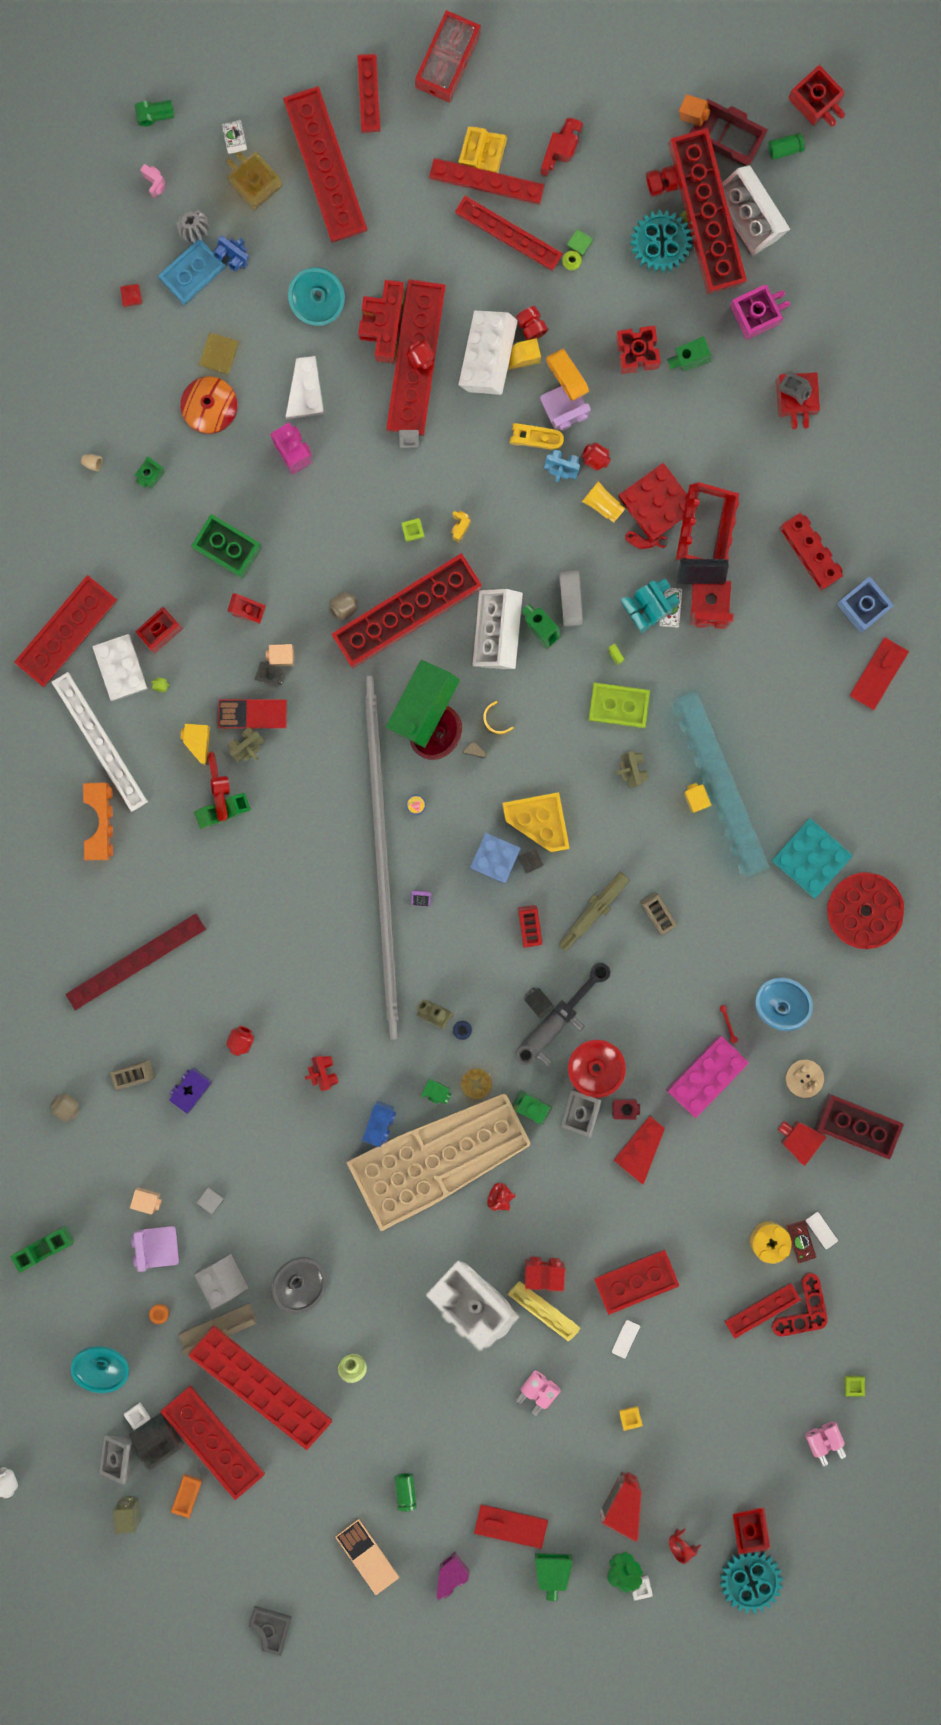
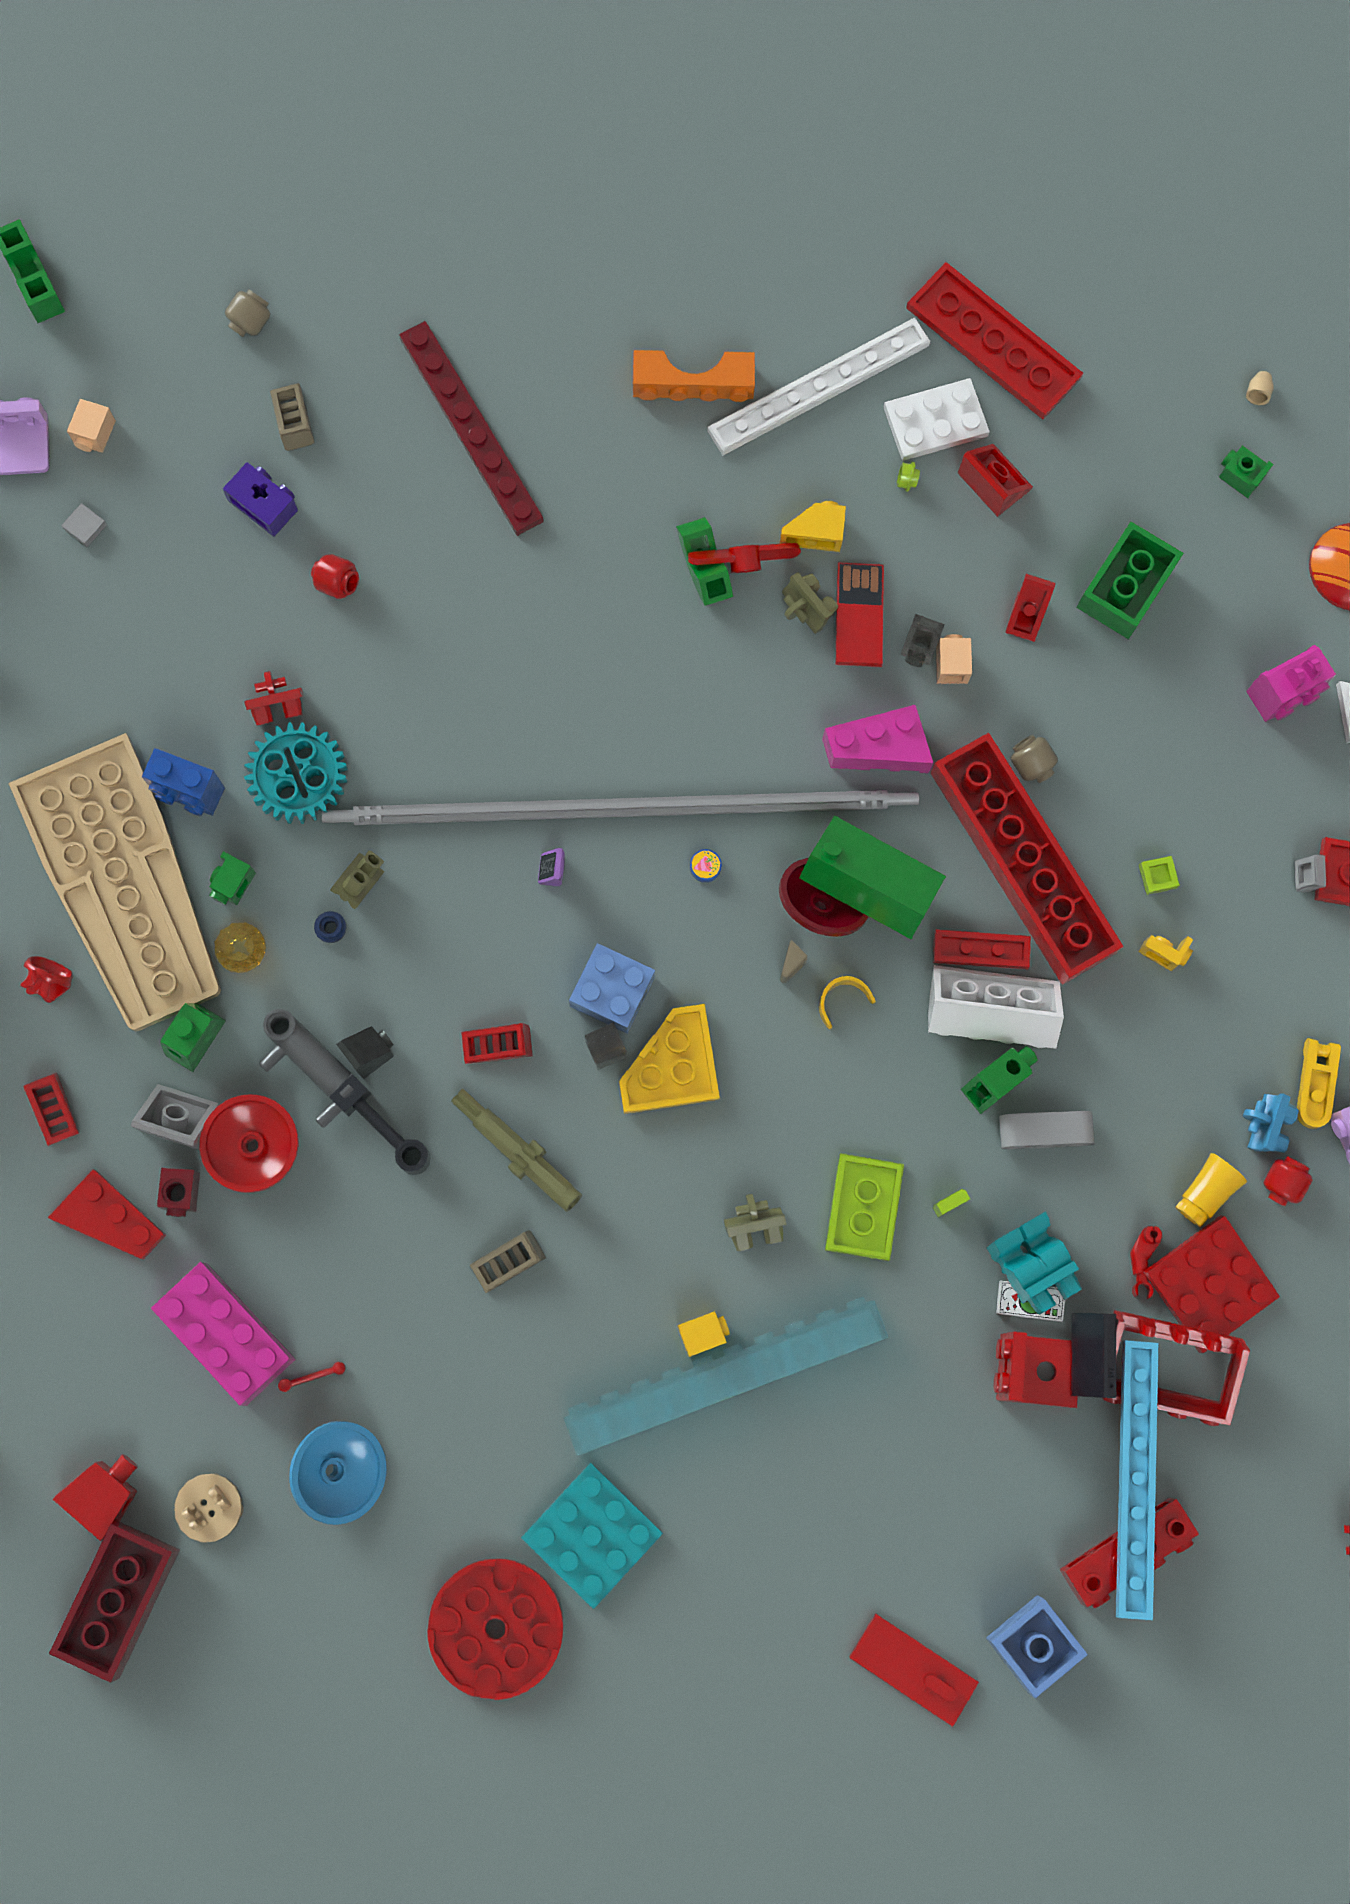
camera: 90 degrees right, 10 degrees down
(336, 699) = (880, 742): none -> dark pink wedge
(375, 1072) = (322, 762): none -> teal gear
(462, 637) = (981, 949): none -> red plate
(562, 1194) = (40, 1113): none -> red slope
(772, 547) = (1137, 1480): none -> medium azure plate

